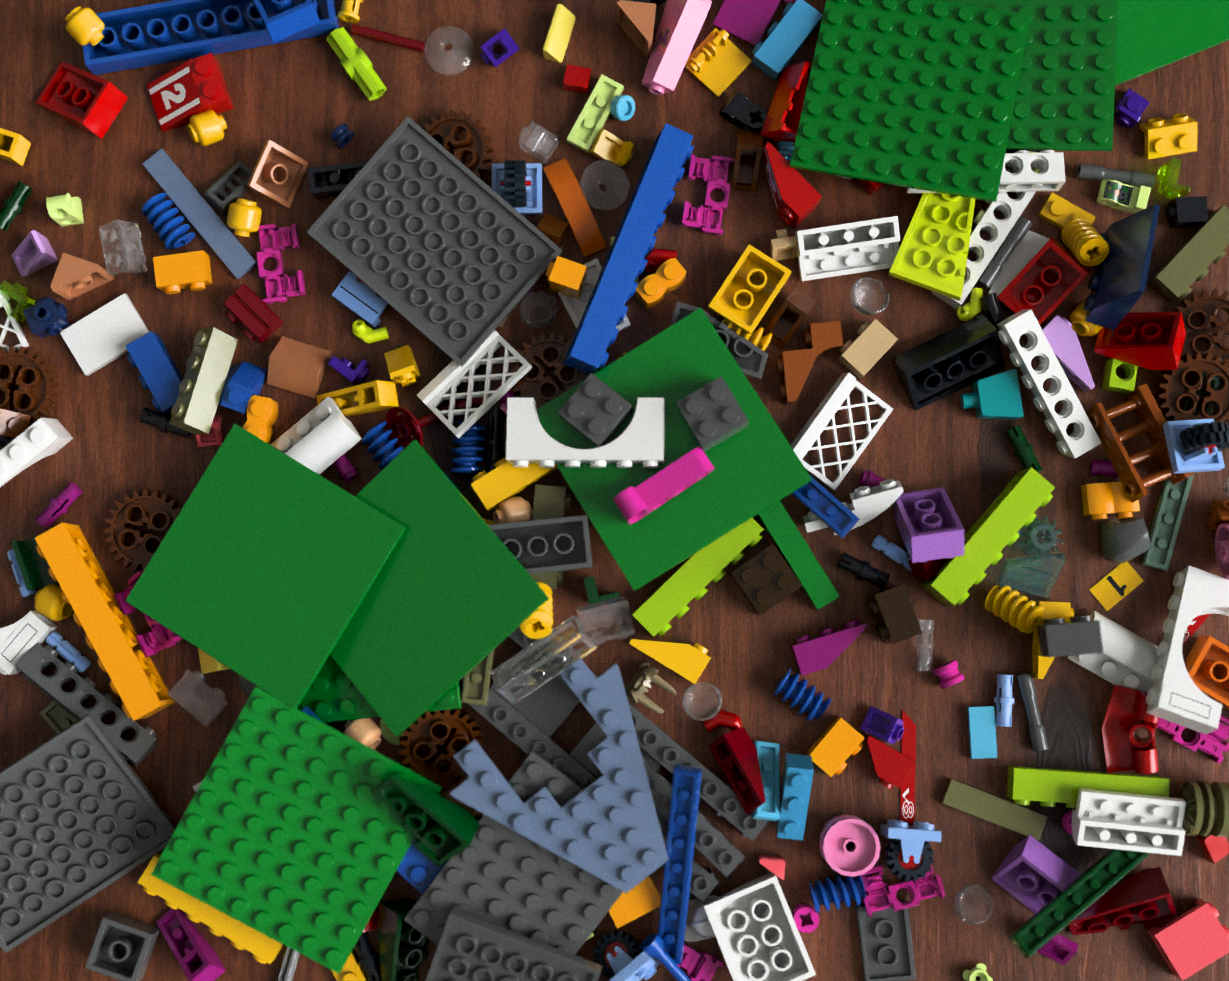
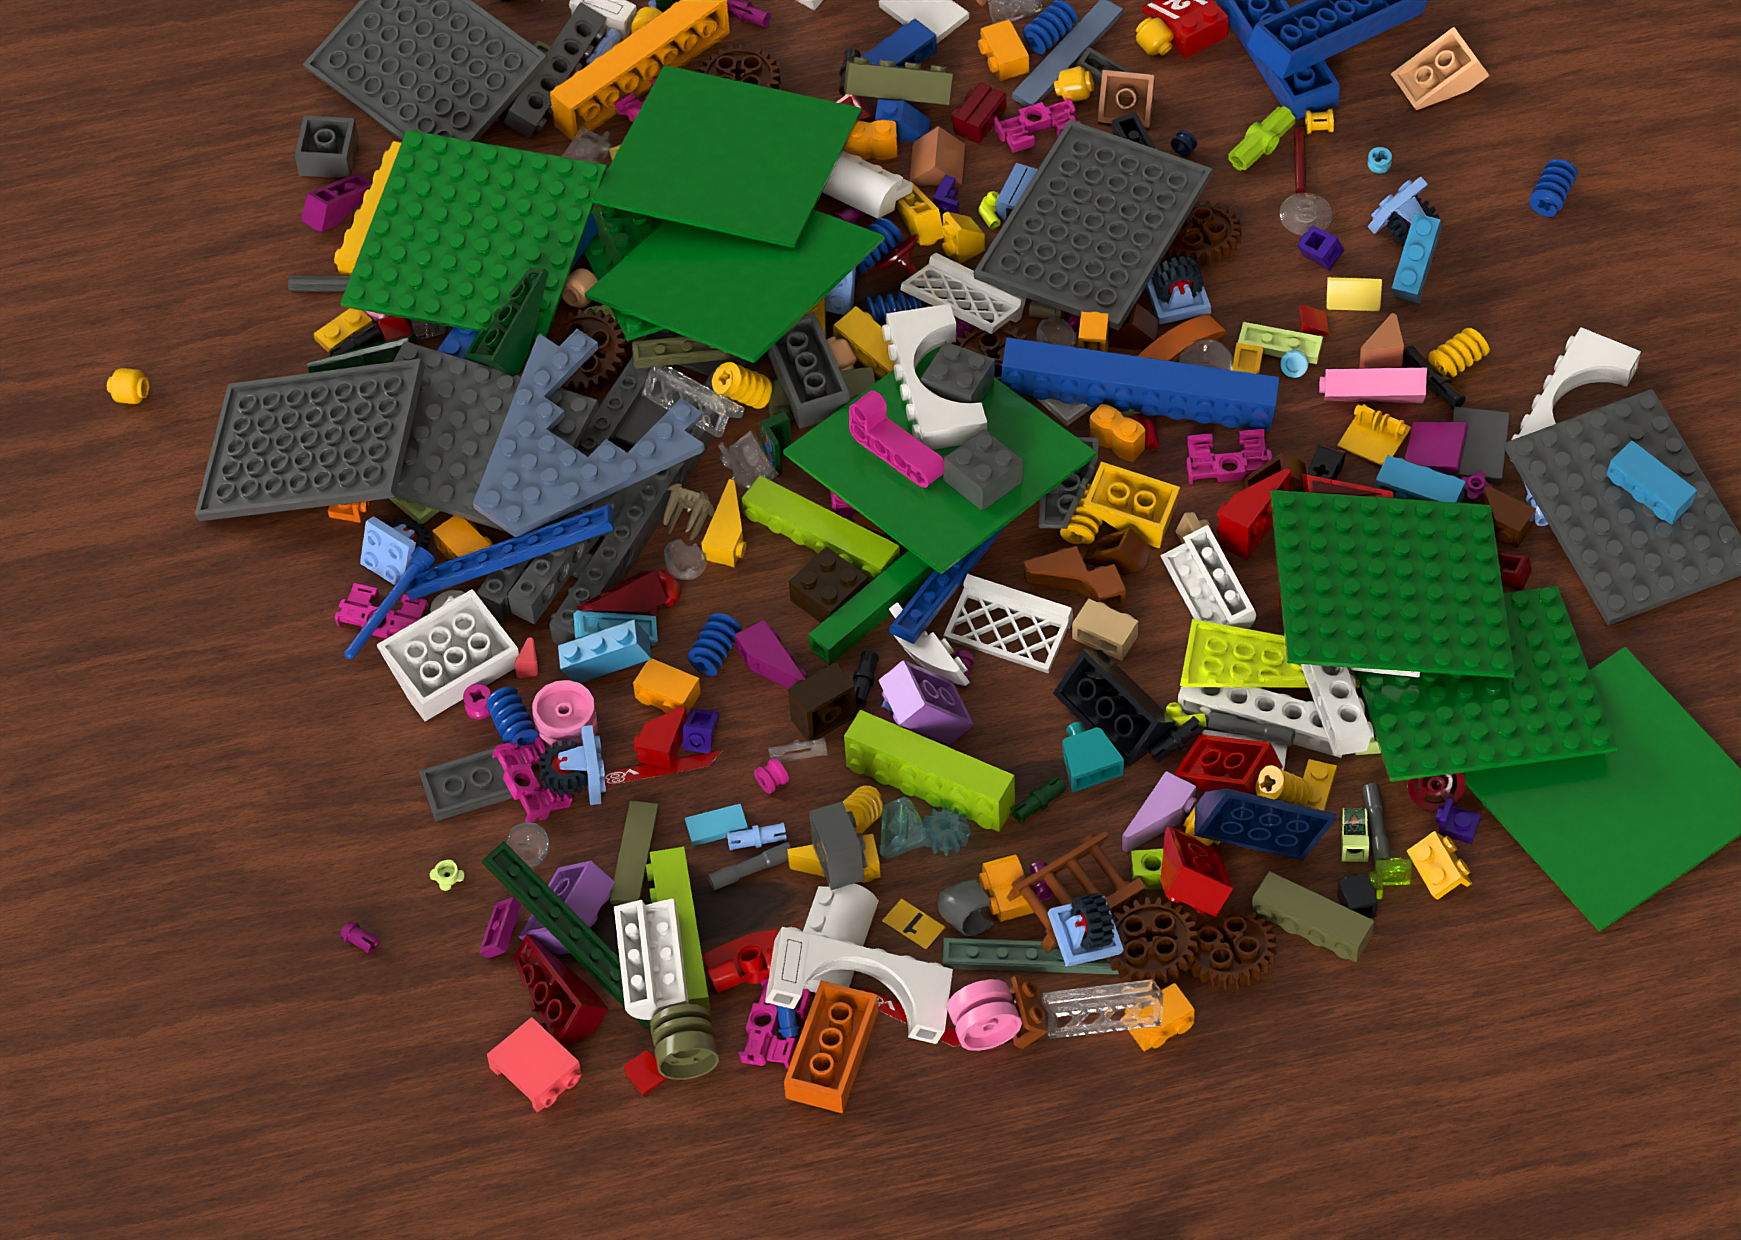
camera: 80 degrees right, 30 degrees down
(538, 142) = (1232, 301): clear brick -> none
(868, 296) = (1162, 615): clear hair -> none
(1084, 436) = (1132, 785): white brick -> none

